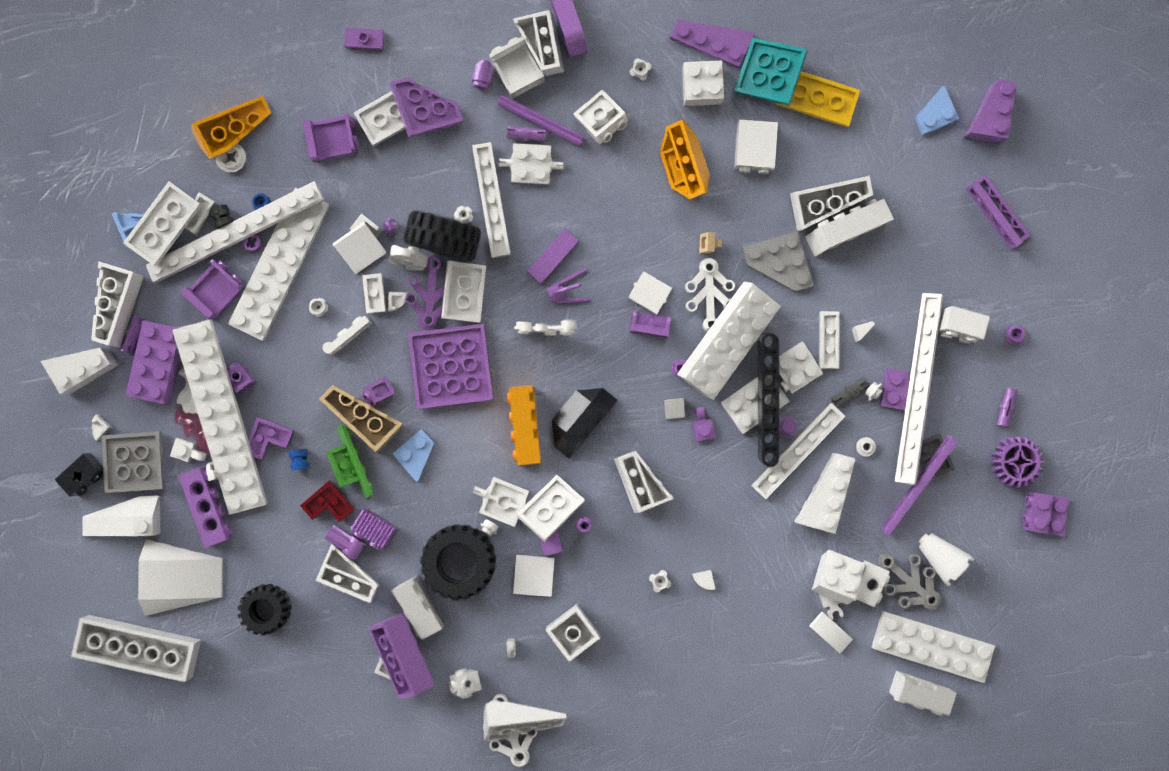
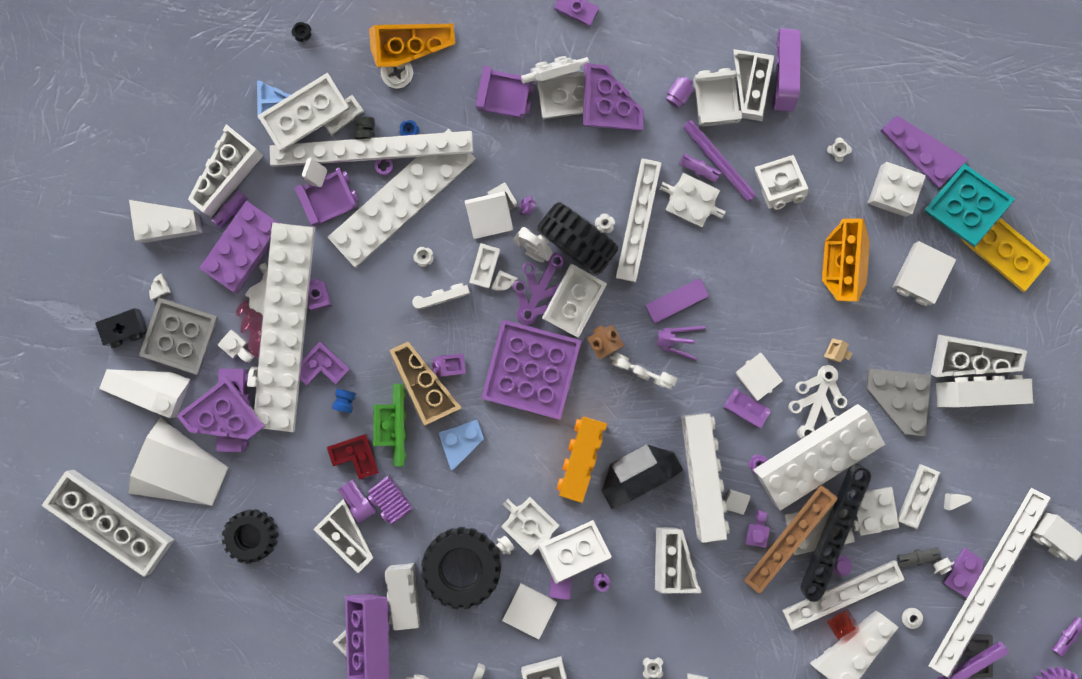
camera: 15 degrees right, 0 degrees up
(129, 152) = (296, 31): none -> black plate
(193, 273) = (314, 173): none -> white slope
(195, 512) = (222, 413): none -> medium lavender plate
(358, 102) = (560, 67): none -> white plate
(504, 315) = (605, 341): none -> medium nougat brick
(636, 398) = (704, 477): none -> white brick
(732, 421) = (790, 539): none -> medium nougat plate
(806, 475) = (842, 624): none -> clear red brick

